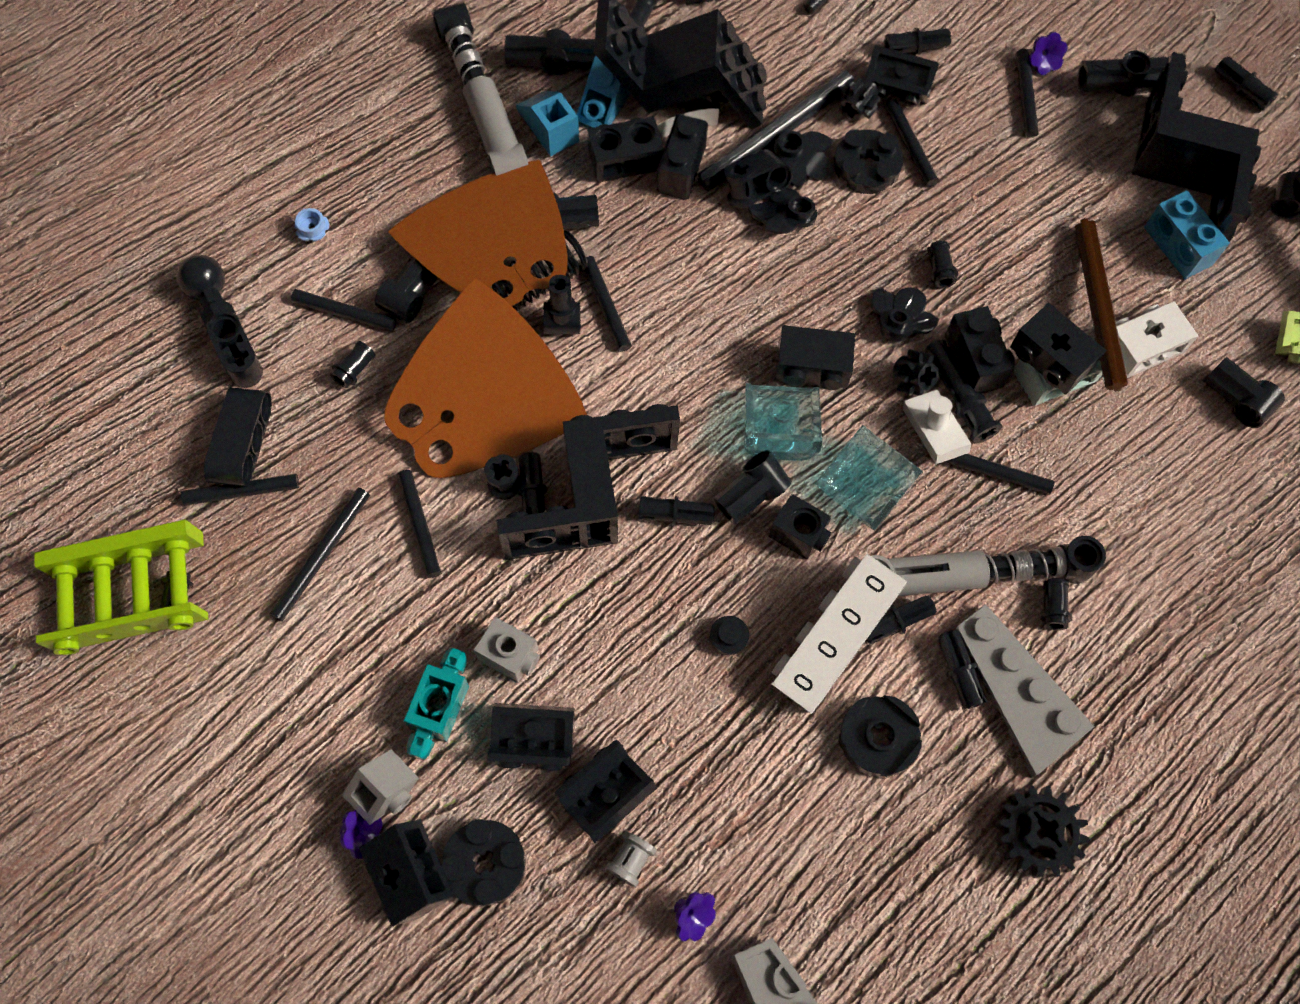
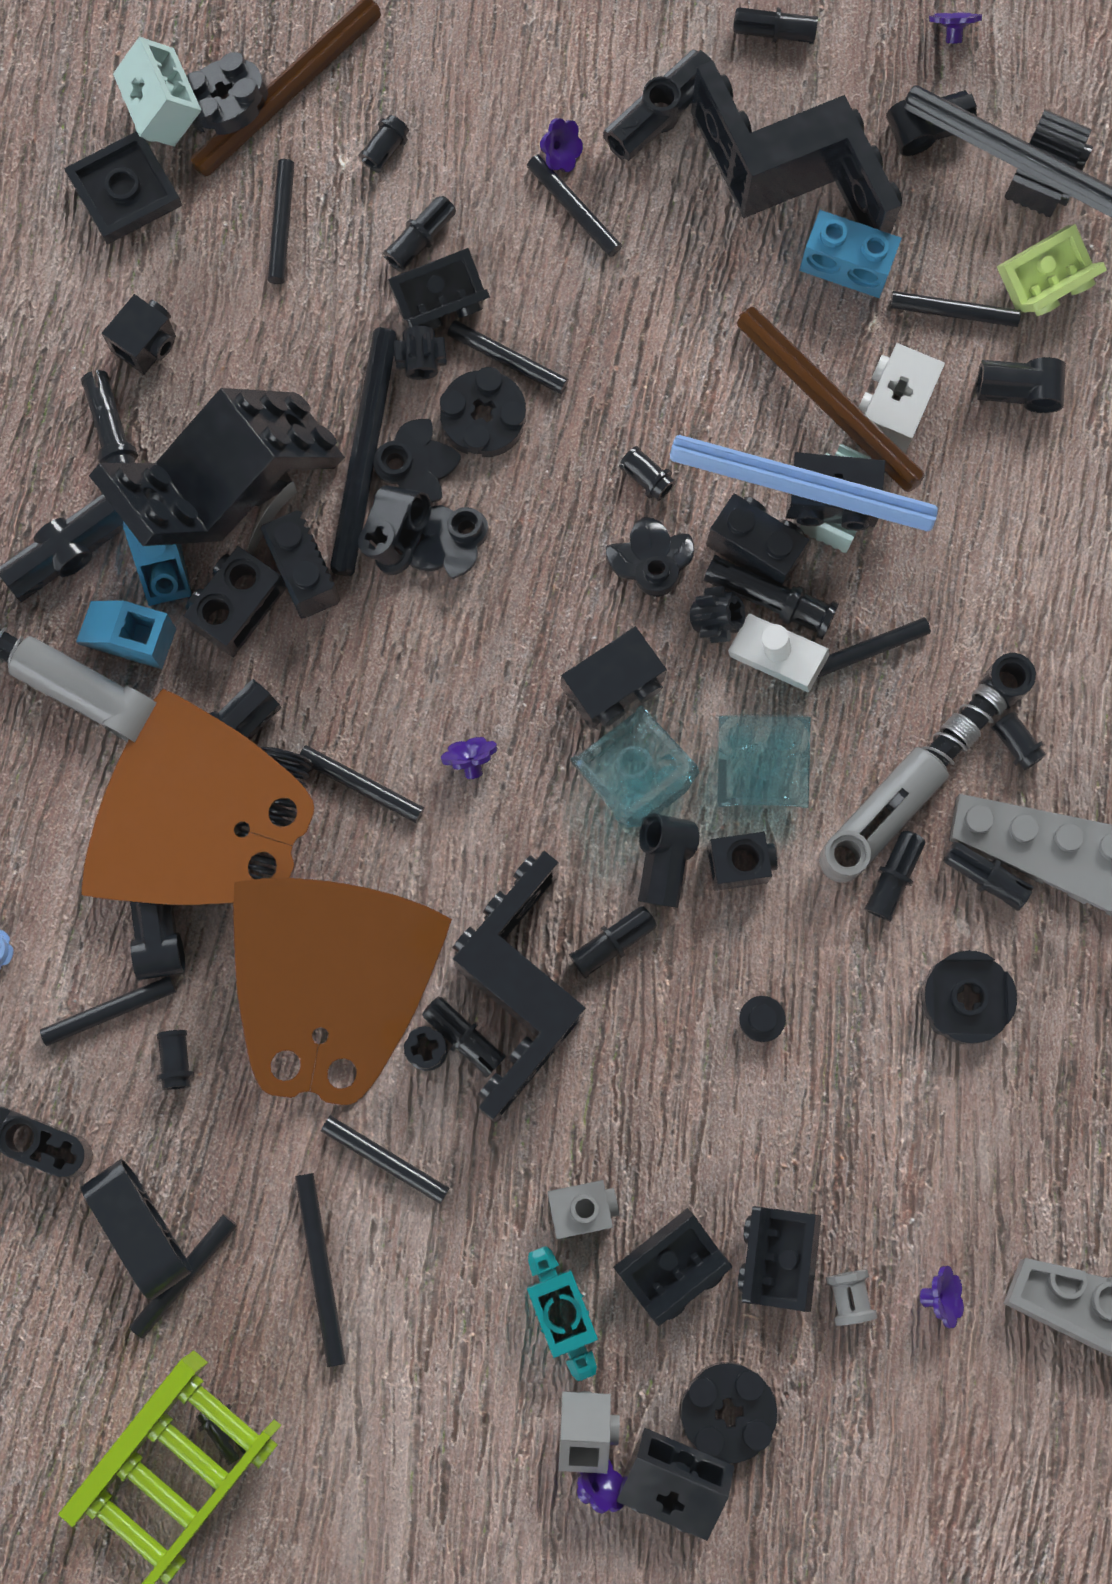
camera: 40 degrees left, 10 degrees up
(561, 311) = (332, 834): black pin -> none
(684, 337) = (469, 755): none -> dark purple plant
(838, 633) = (863, 939): white brick -> none
(1040, 322) = (803, 483): none -> light blue axle
(1233, 319) = (955, 309): none -> black bar

